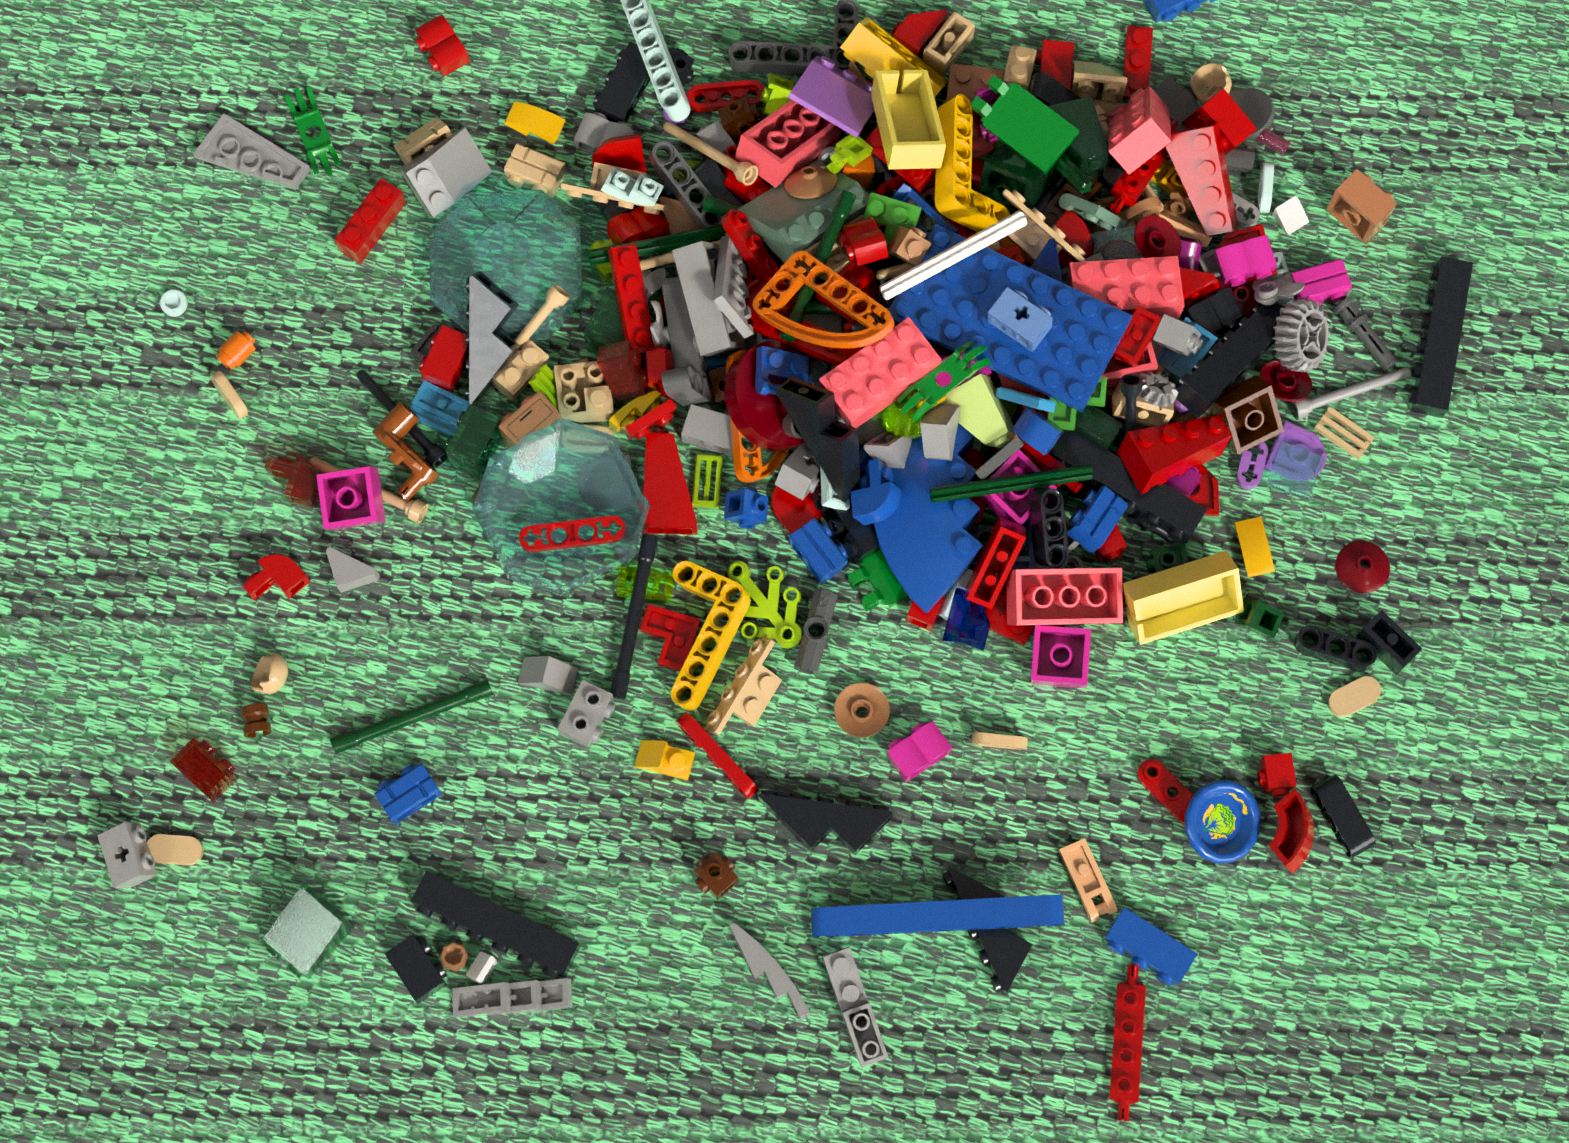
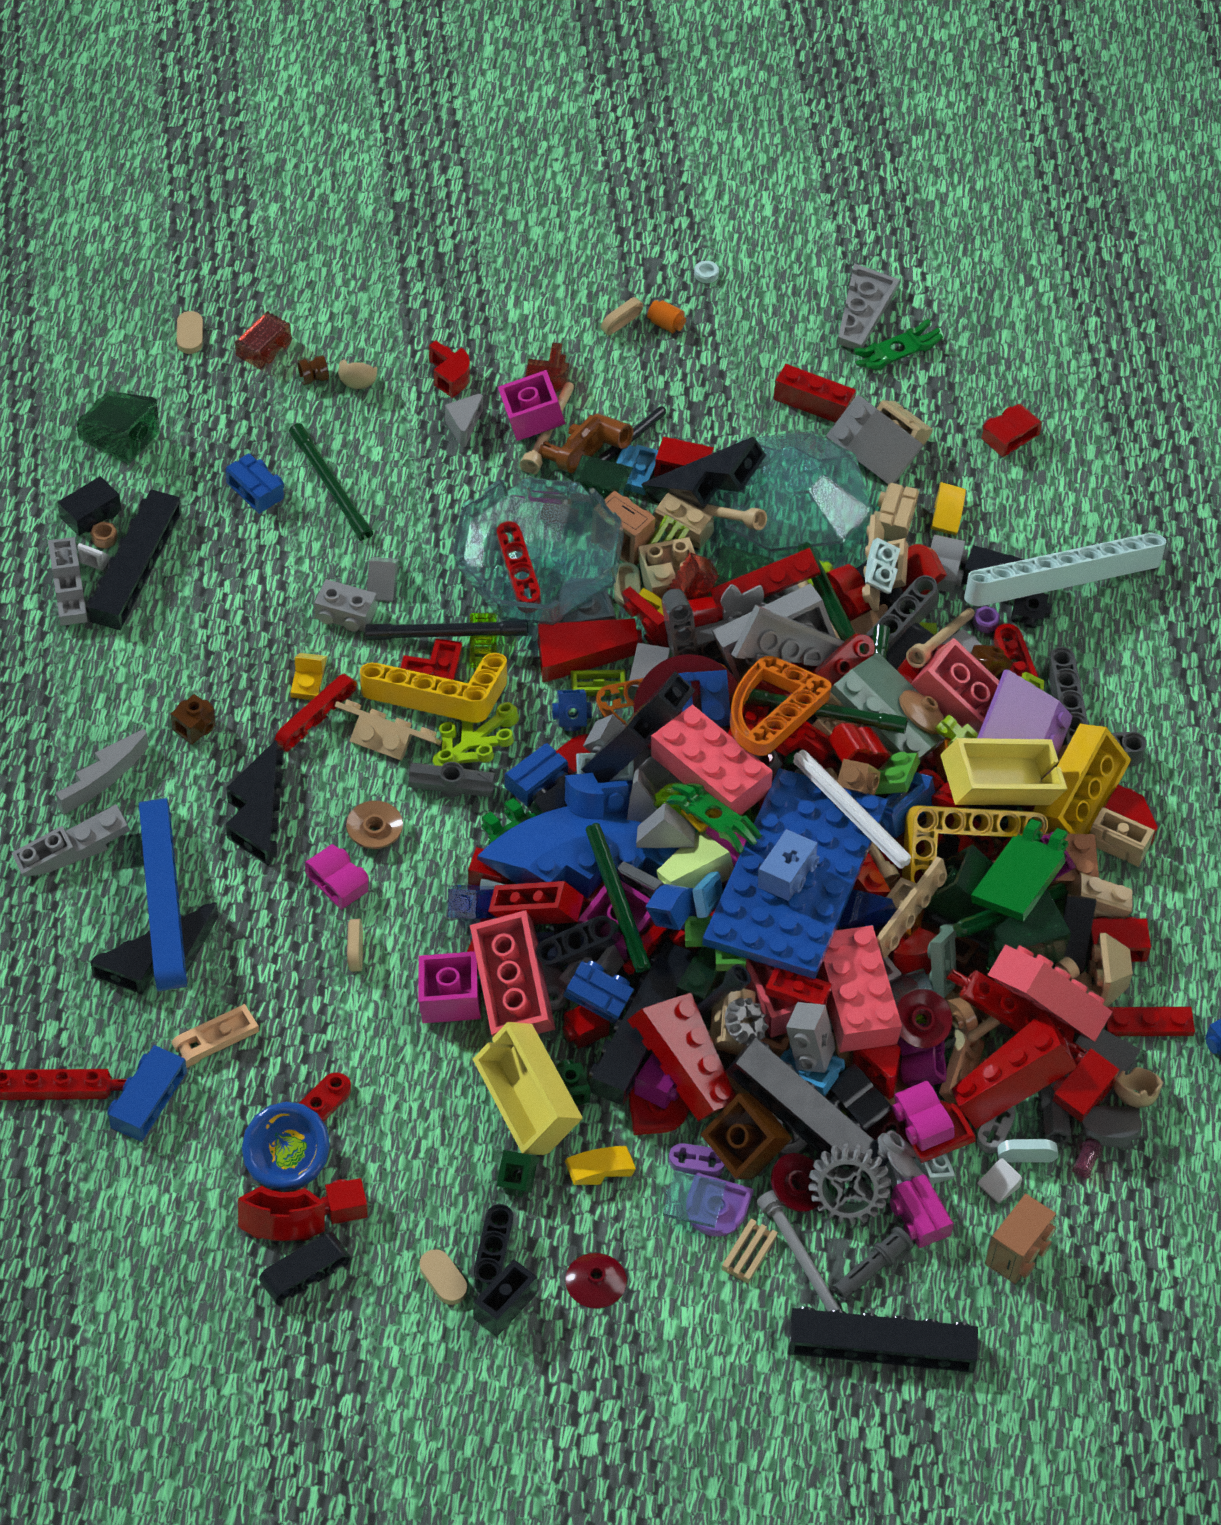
camera: 80 degrees right, 20 degrees down
(127, 855) = (179, 296): light grey brick -> none

